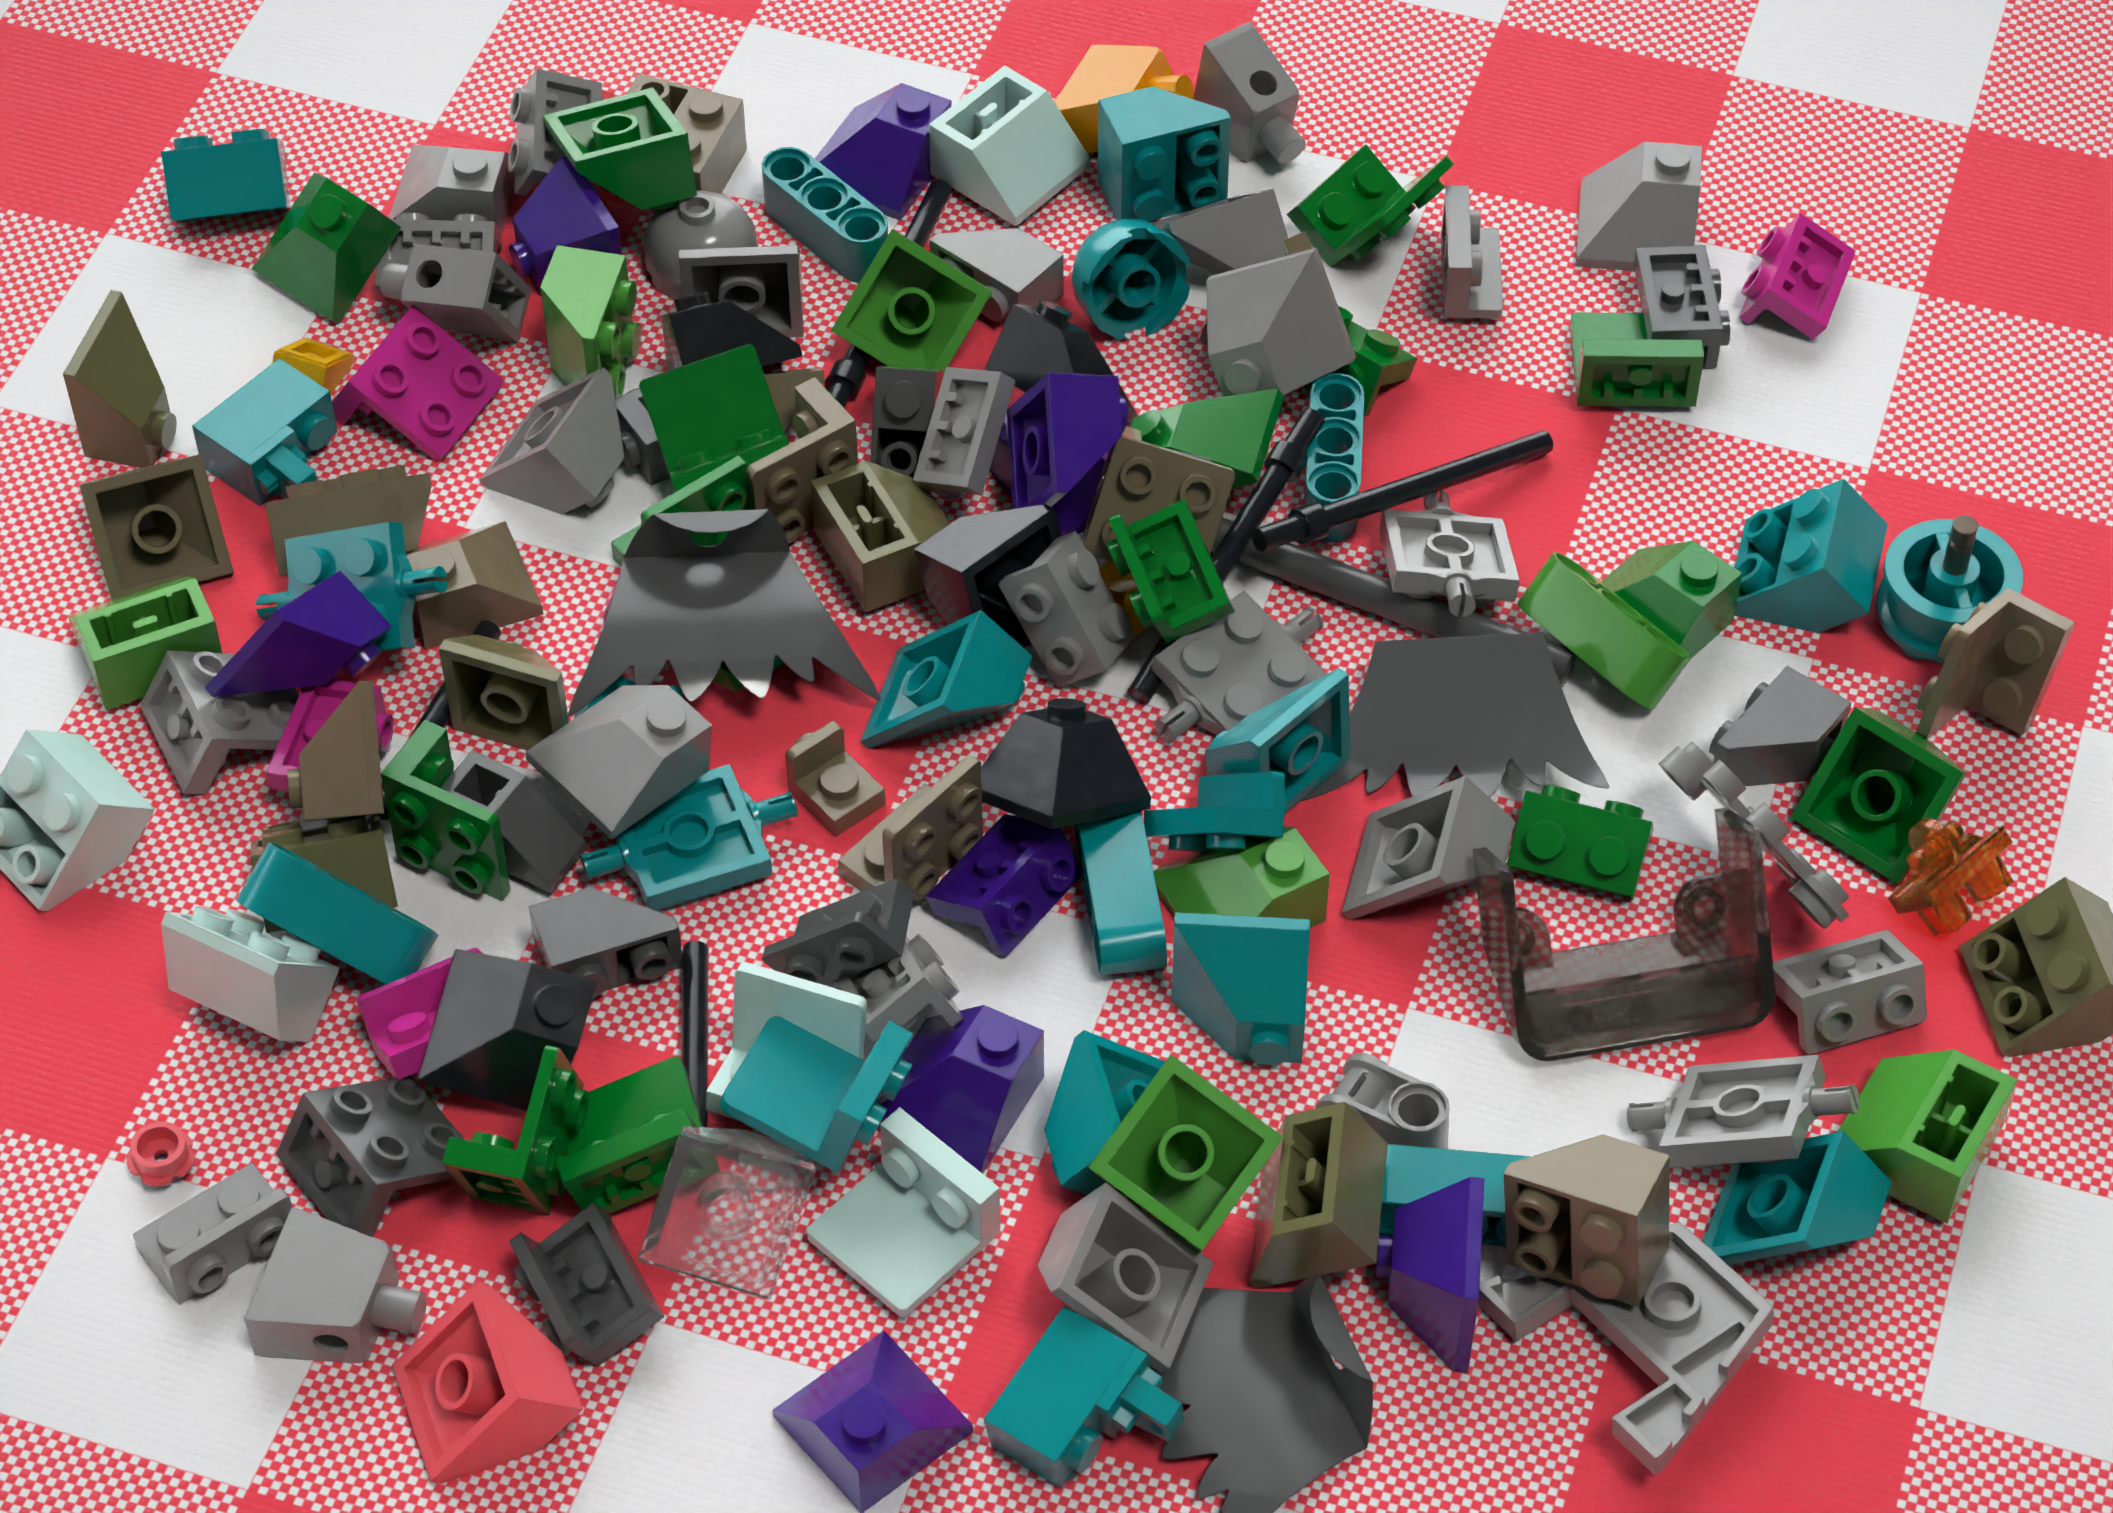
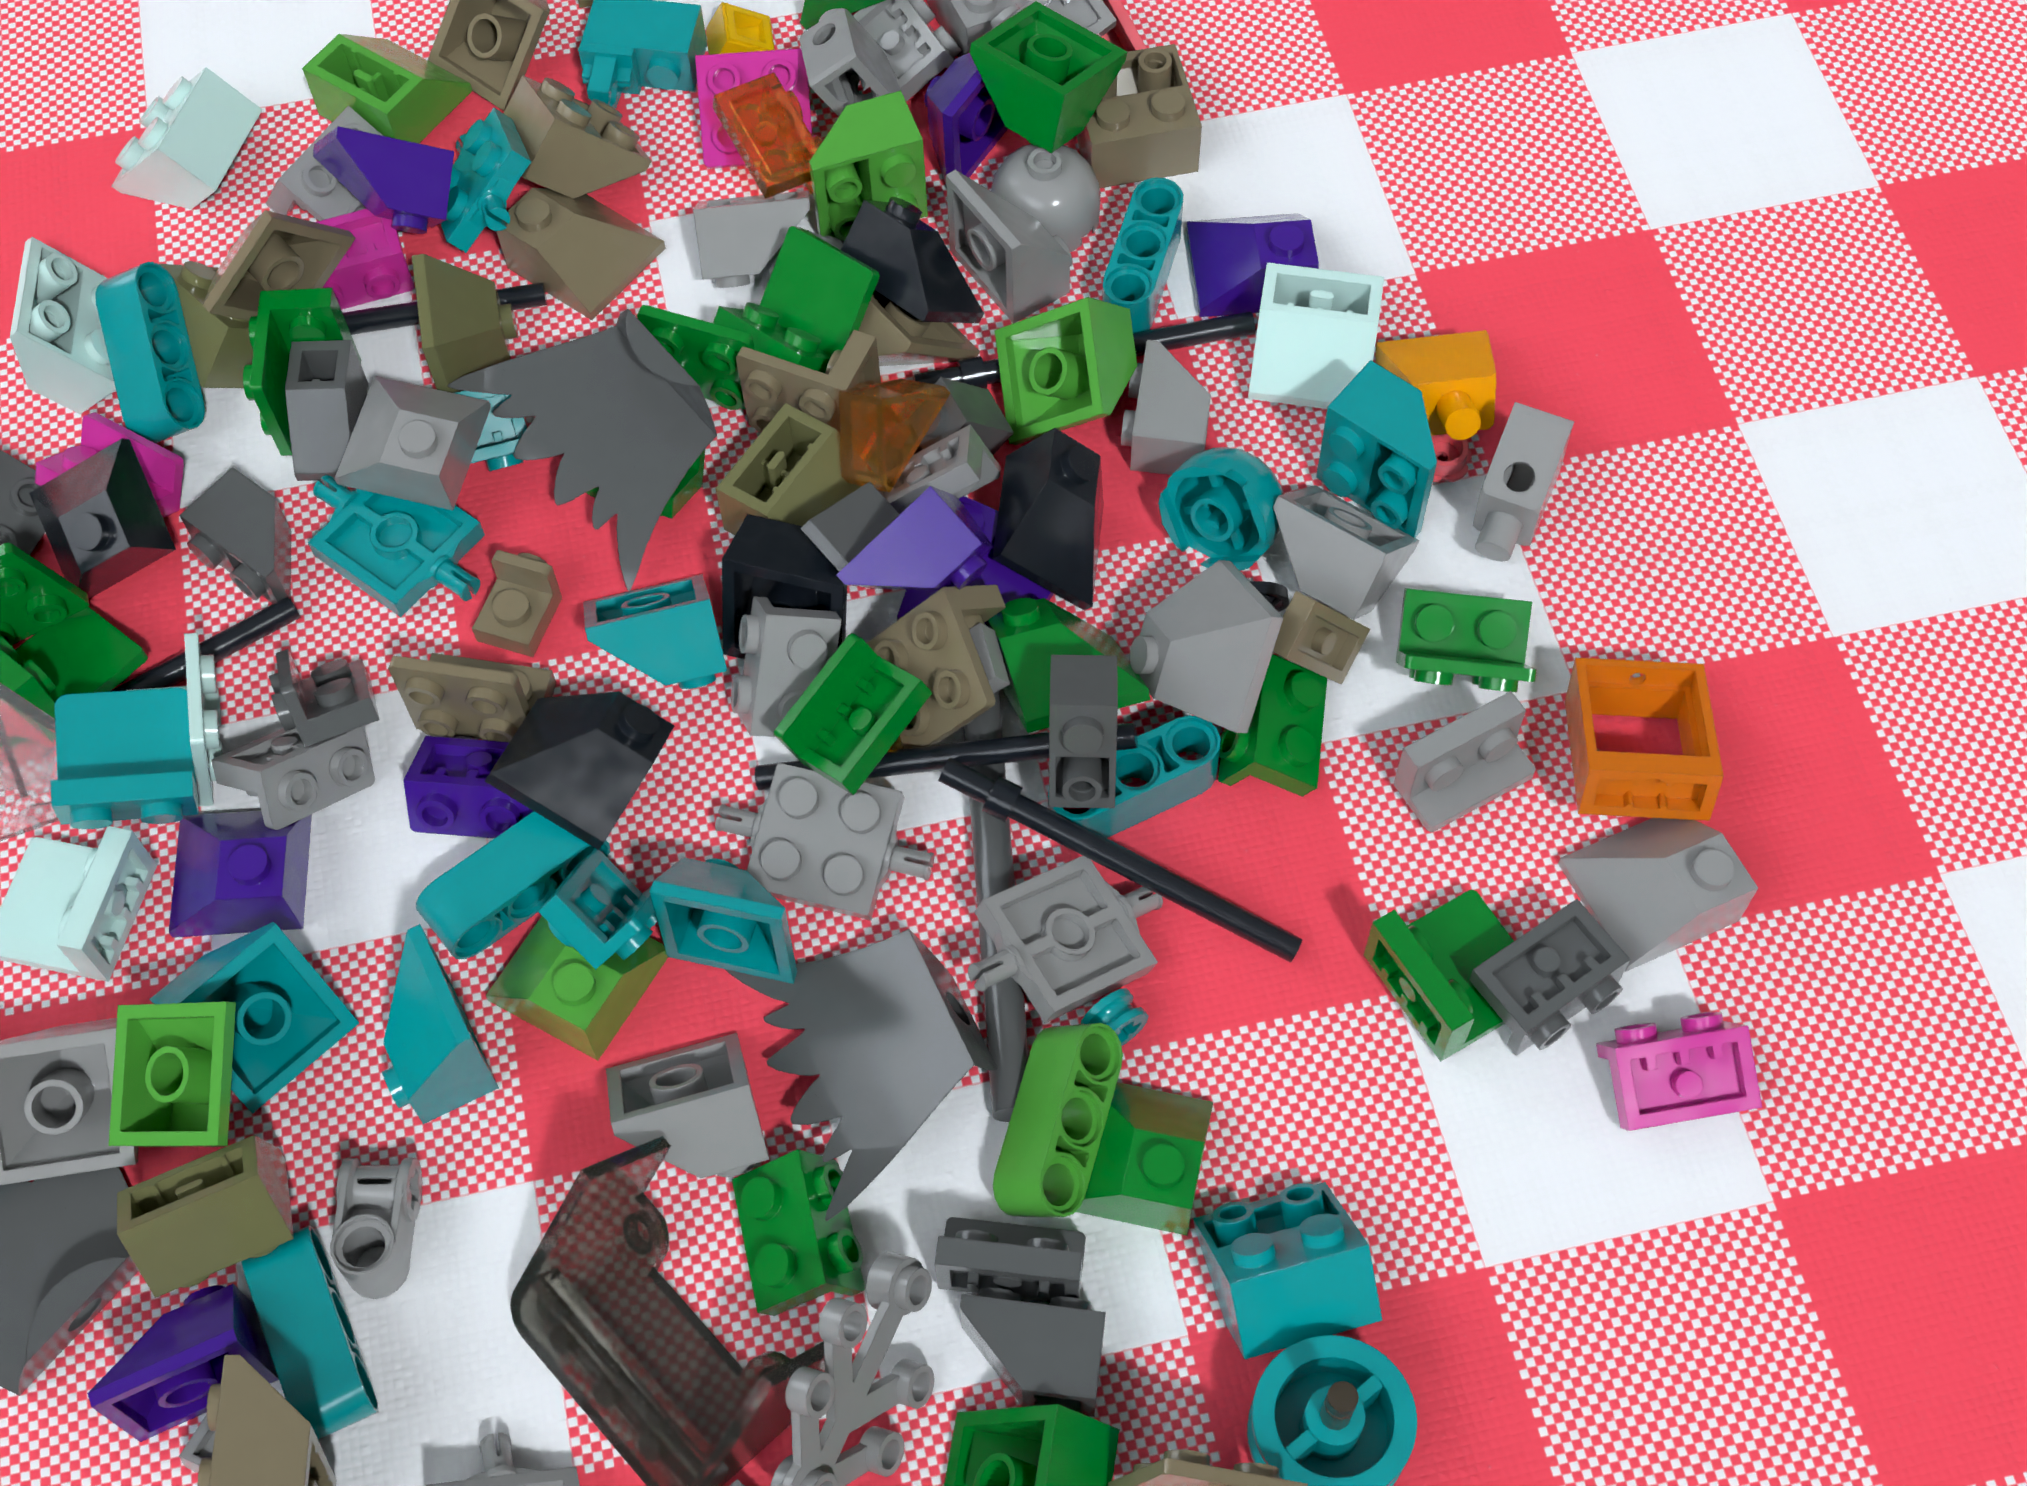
camera: 60 degrees right, 10 degrees up
(502, 365) = (768, 133): none -> clear orange bracket
(902, 427) = (884, 428): none -> clear orange slope
(994, 481) = (850, 524): none -> dark grey slope
(1305, 424) = (1083, 731): none -> dark grey slope
(1531, 560) = (1119, 1014): none -> teal bush
(1574, 131) = (1643, 782): none -> orange window
(1701, 707) = (1012, 1257): none -> dark grey bracket

